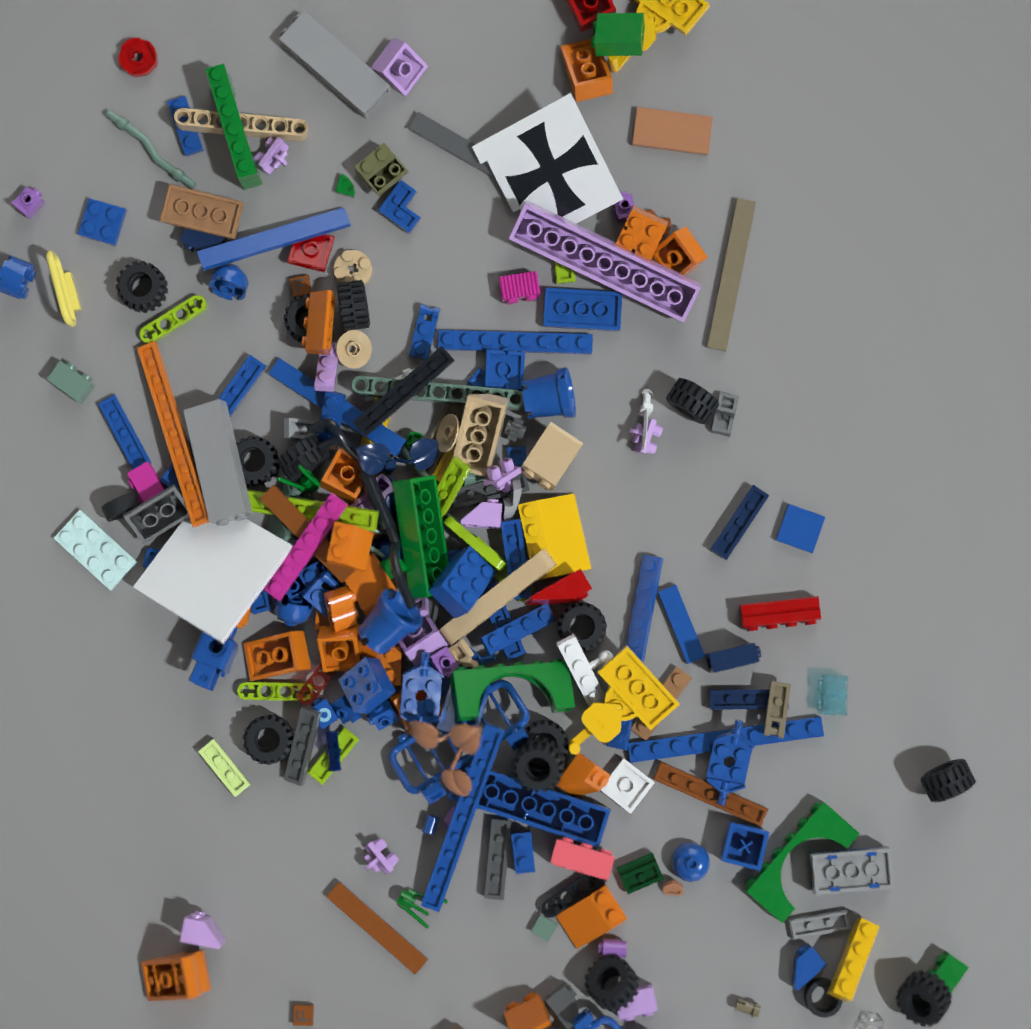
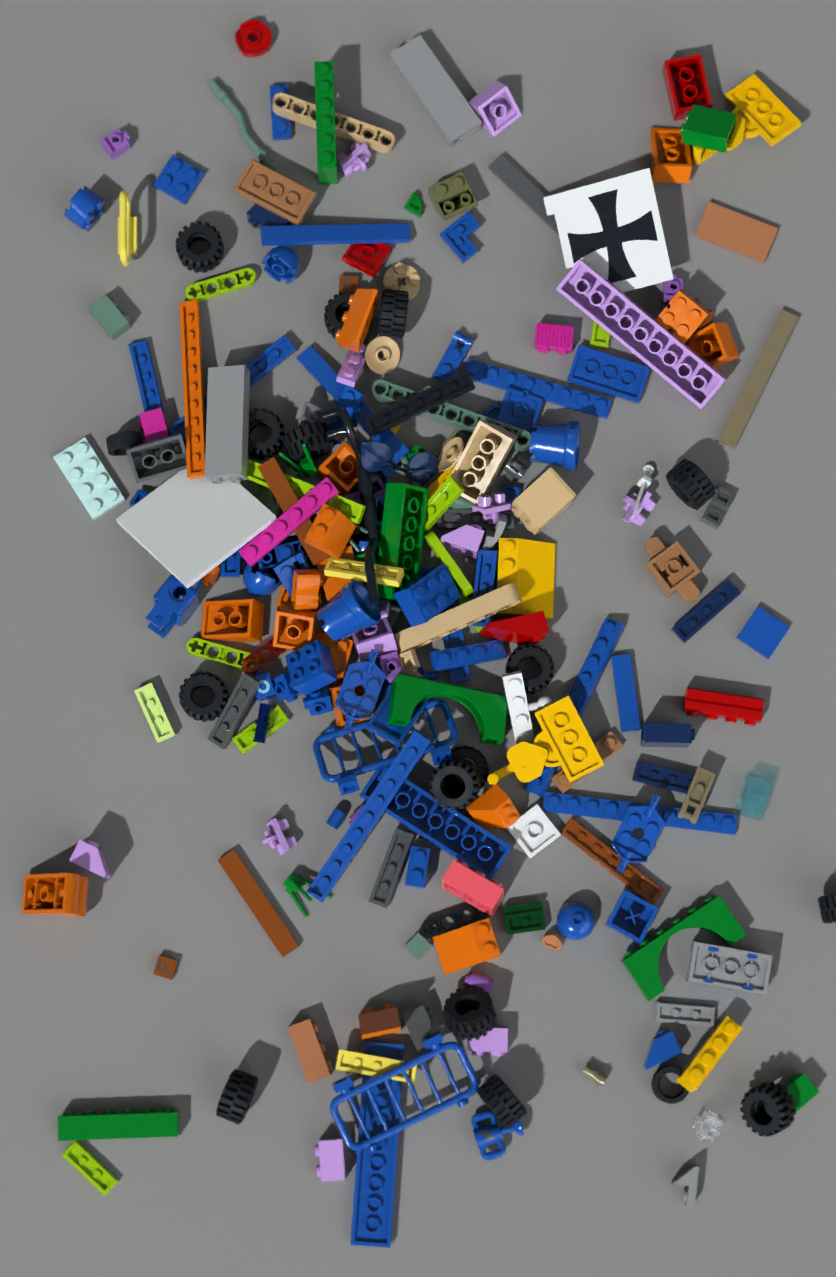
camera: 15 degrees right, 5 degrees down
(383, 578) = (356, 571): none -> light yellow plate
(461, 736) = (391, 735): nougat plant -> none
(696, 490) = (672, 569): none -> medium nougat brick

